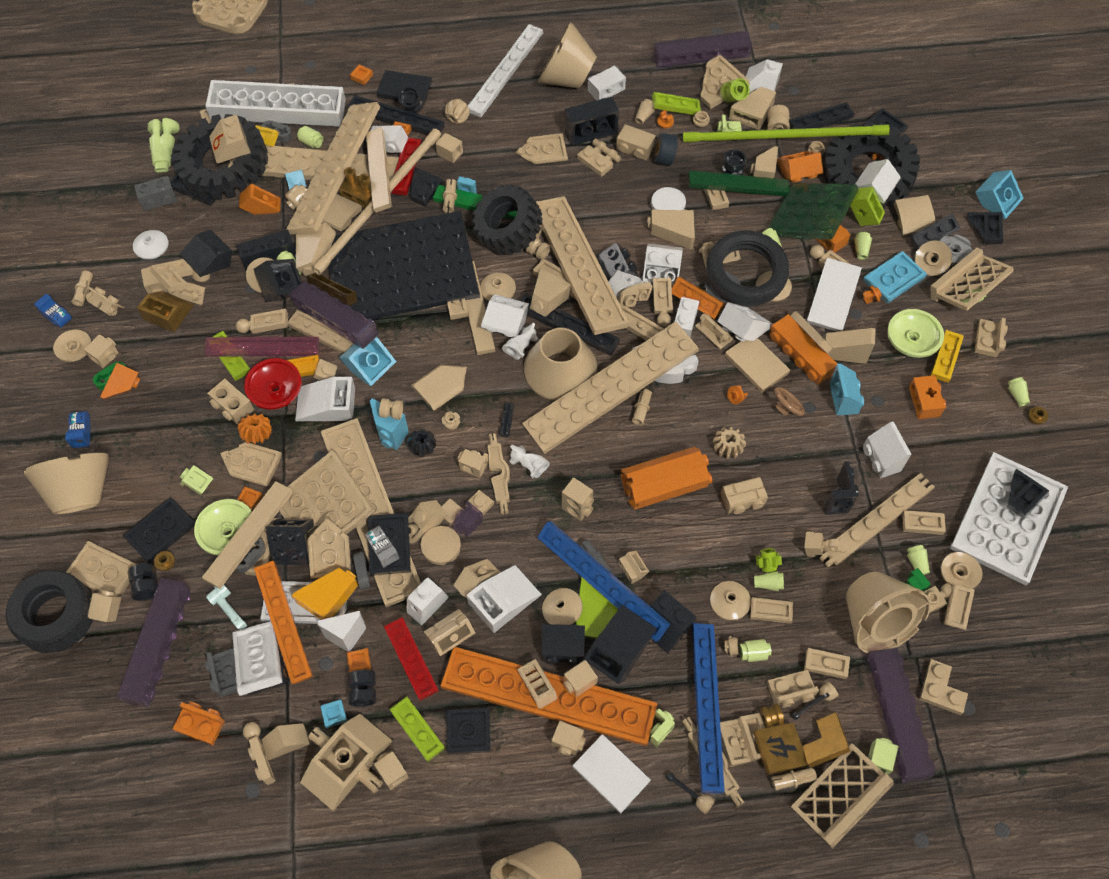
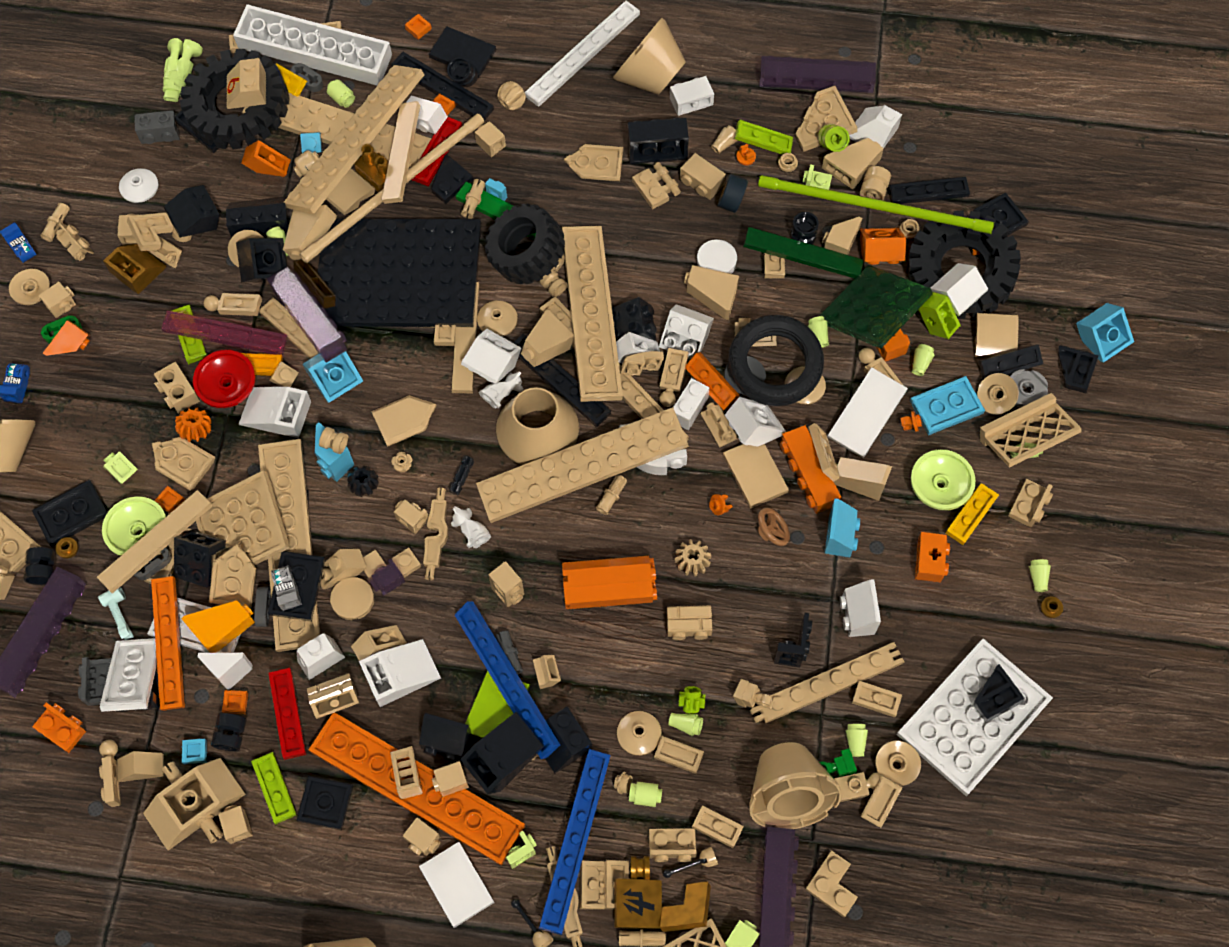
camera: 15 degrees right, 5 degrees up
(568, 613) = (464, 704): tan dish -> none

